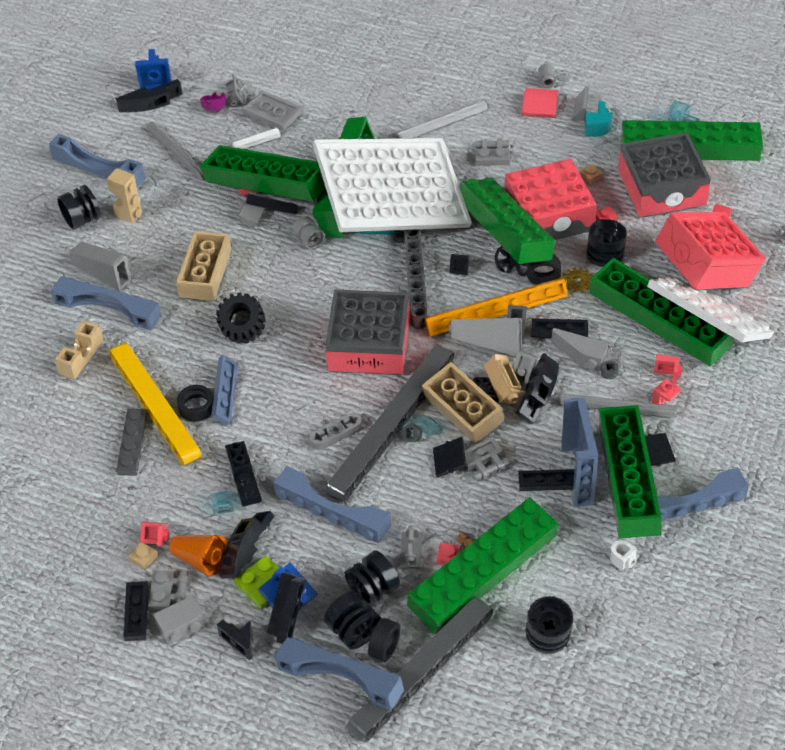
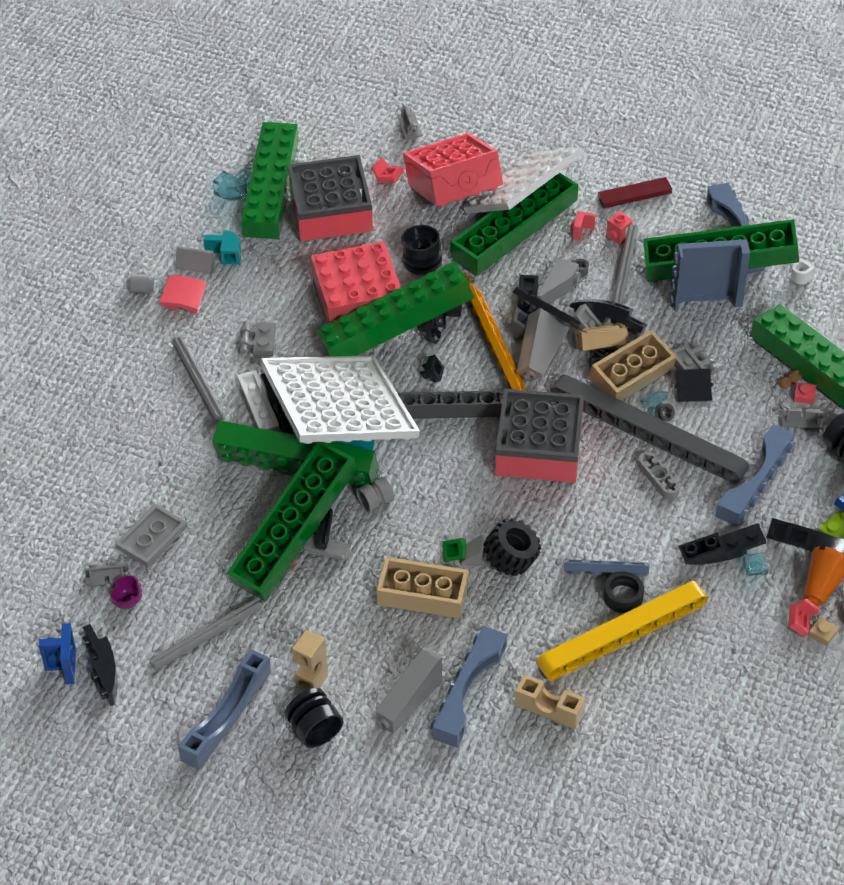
camera: 90 degrees left, 0 degrees up
(132, 442) = (674, 650): dark grey plate -> none
(252, 288) = (454, 549): none -> green slope
(257, 139) = (200, 552): white axle -> none
(530, 330) = (547, 307): none -> black tile
(546, 480) = (714, 319): black tile -> none
(591, 173) = (302, 262): tan plate -> none
(731, 414) = (635, 192): none -> dark red tile

